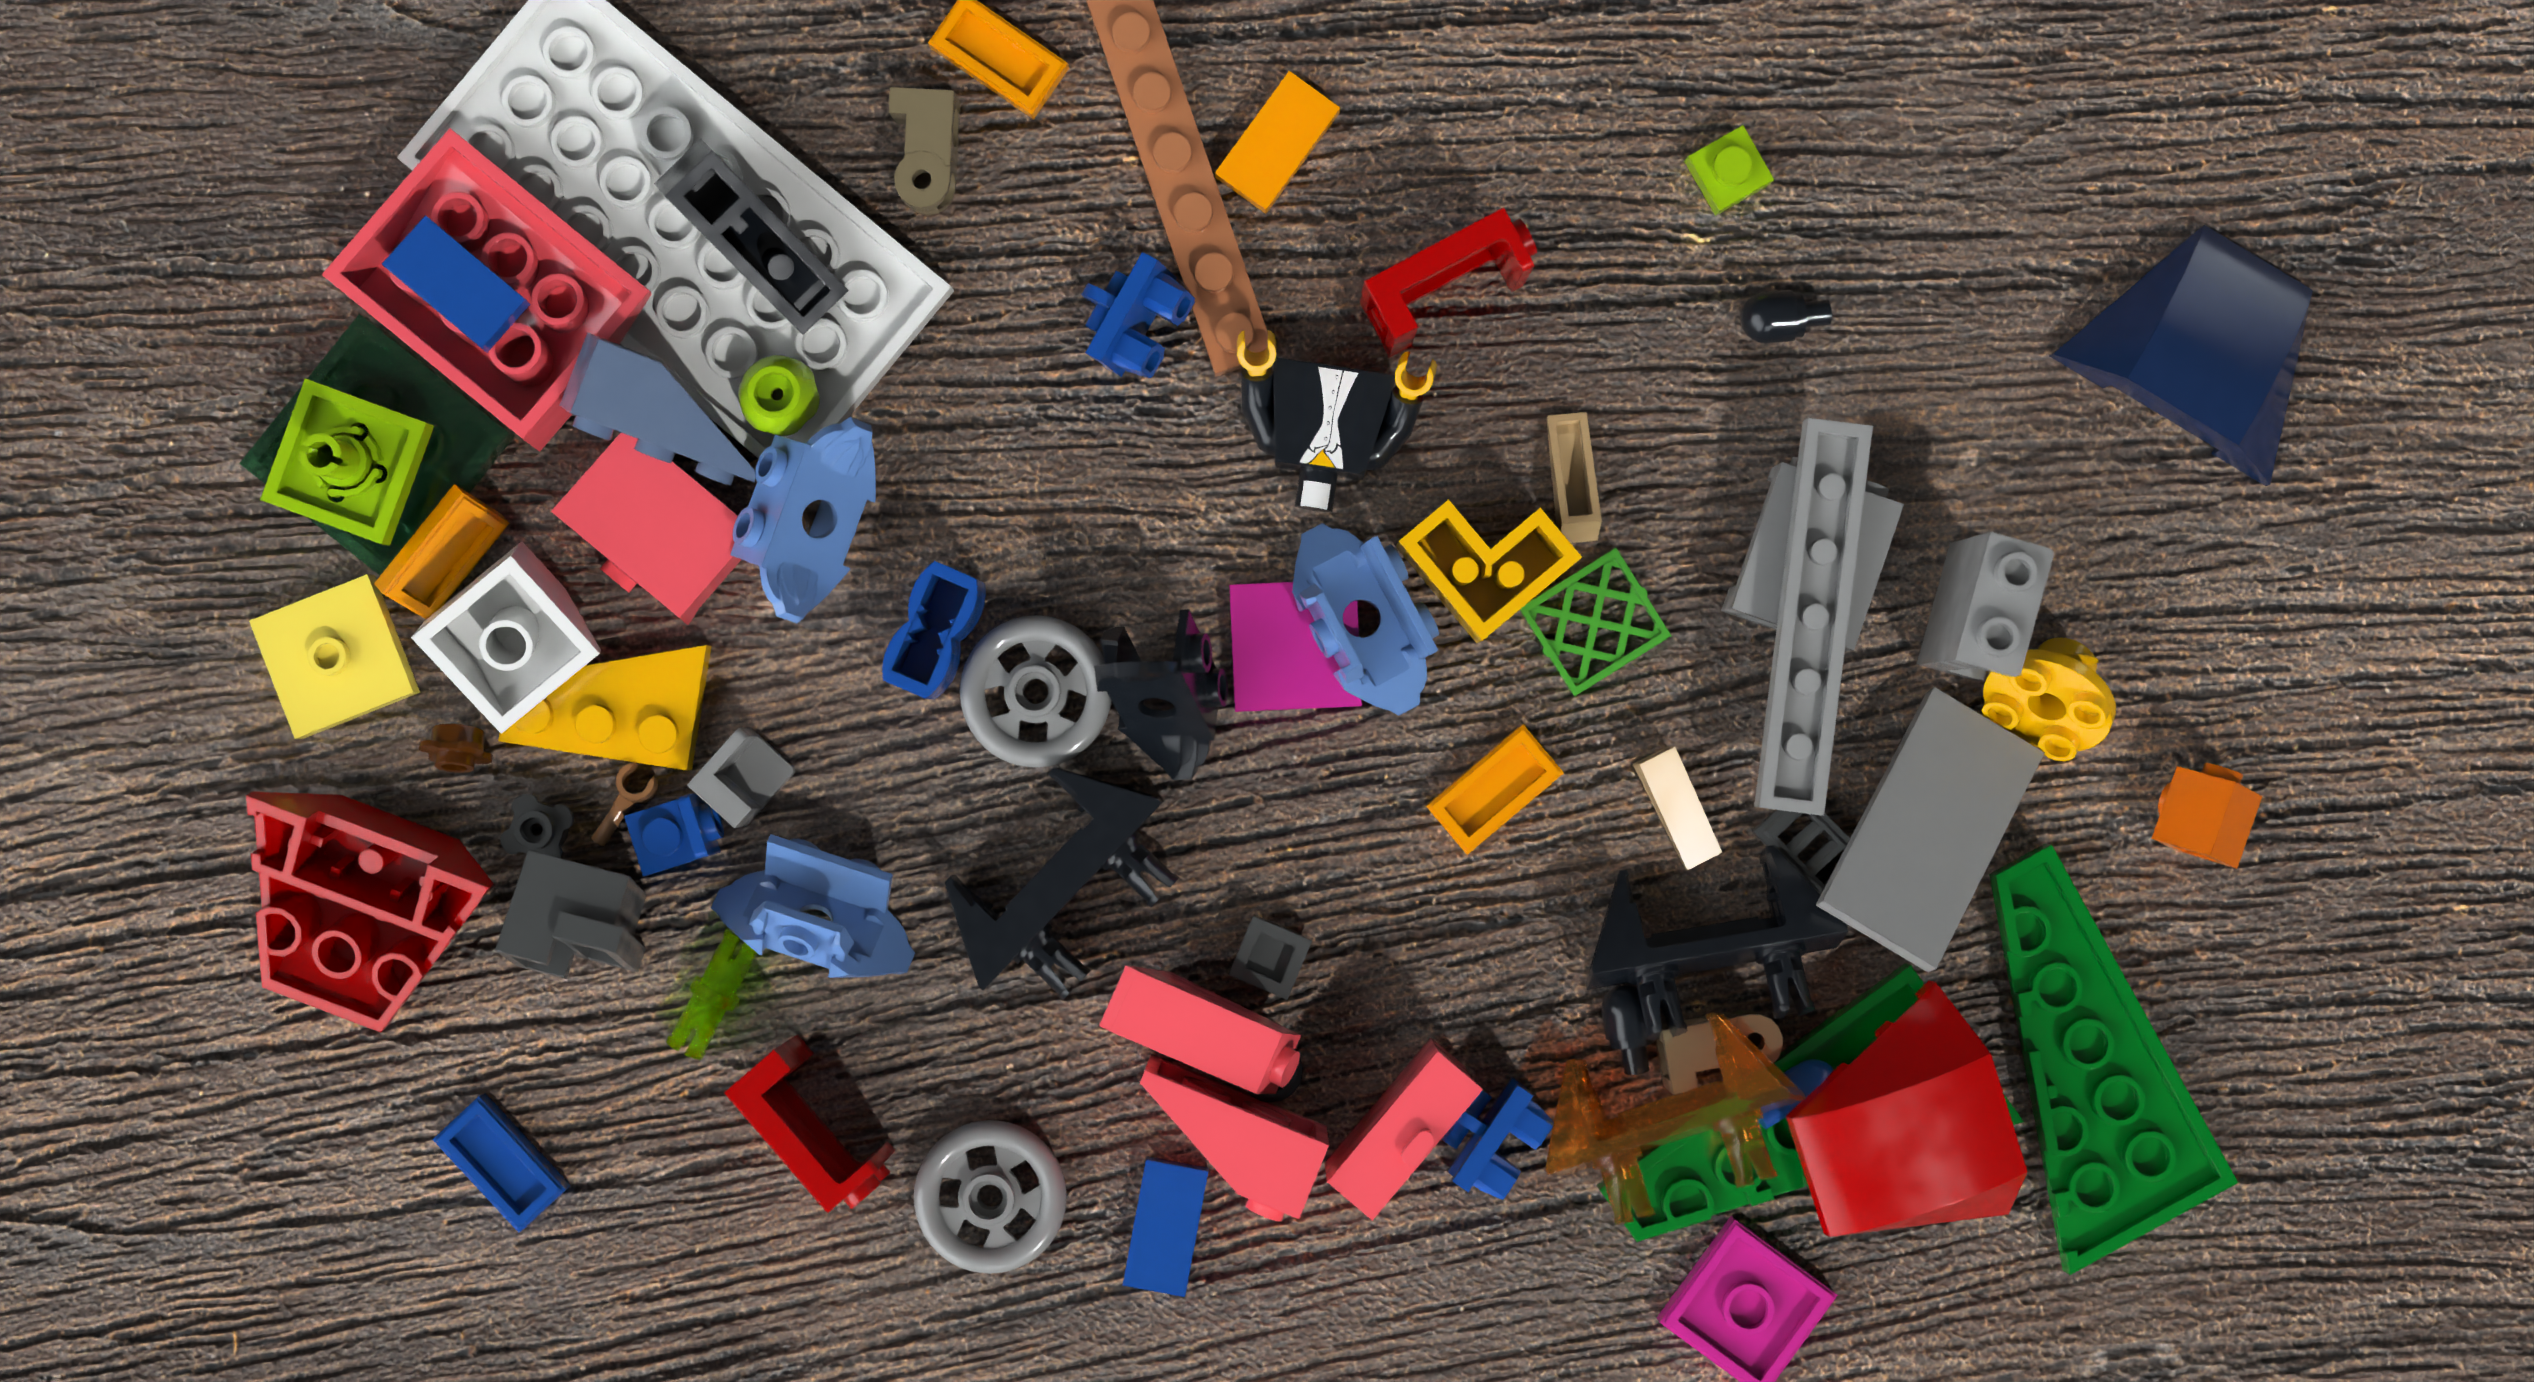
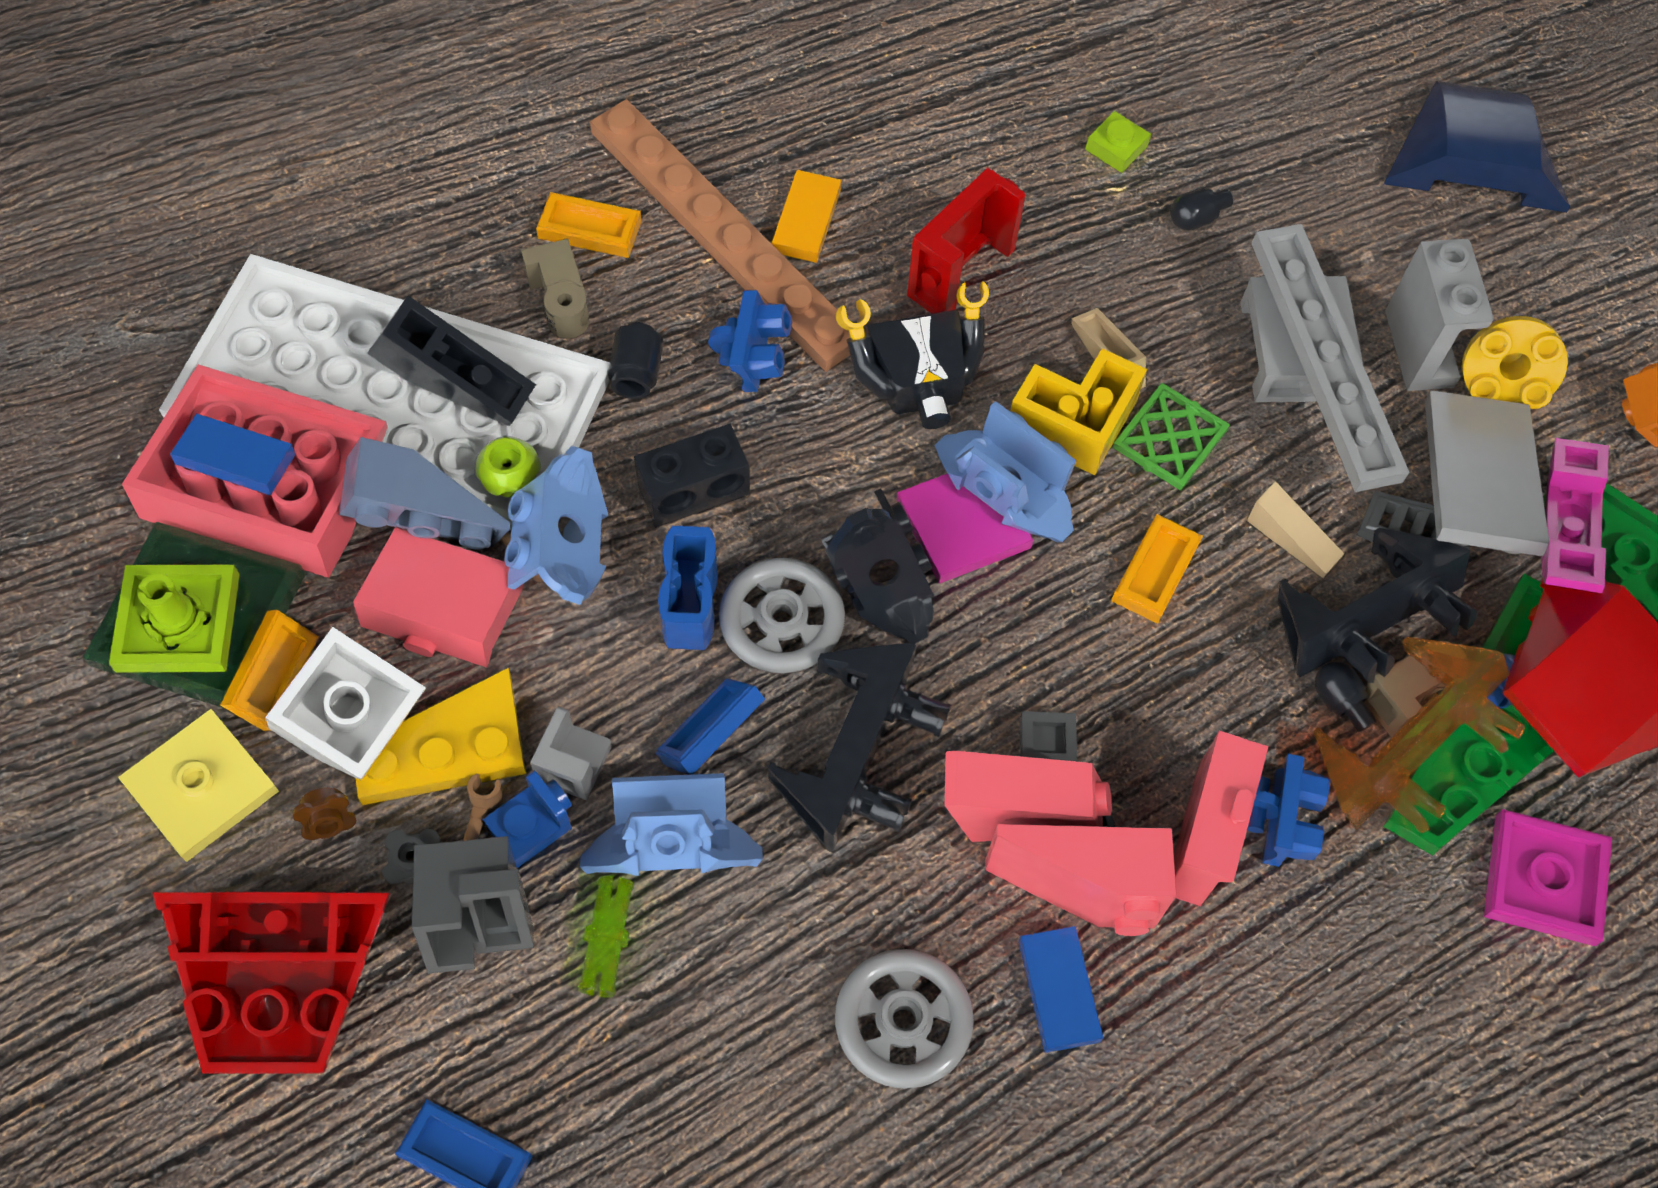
camera: 30 degrees left, 25 degrees down
(801, 1135) = (722, 1008): red panel -> none
(903, 801) = (709, 726): none -> blue tile
(983, 289) = (635, 360): none -> black brick
(993, 479) = (692, 475): none -> black brick
(1995, 938) = (1575, 515): none -> dark pink slope

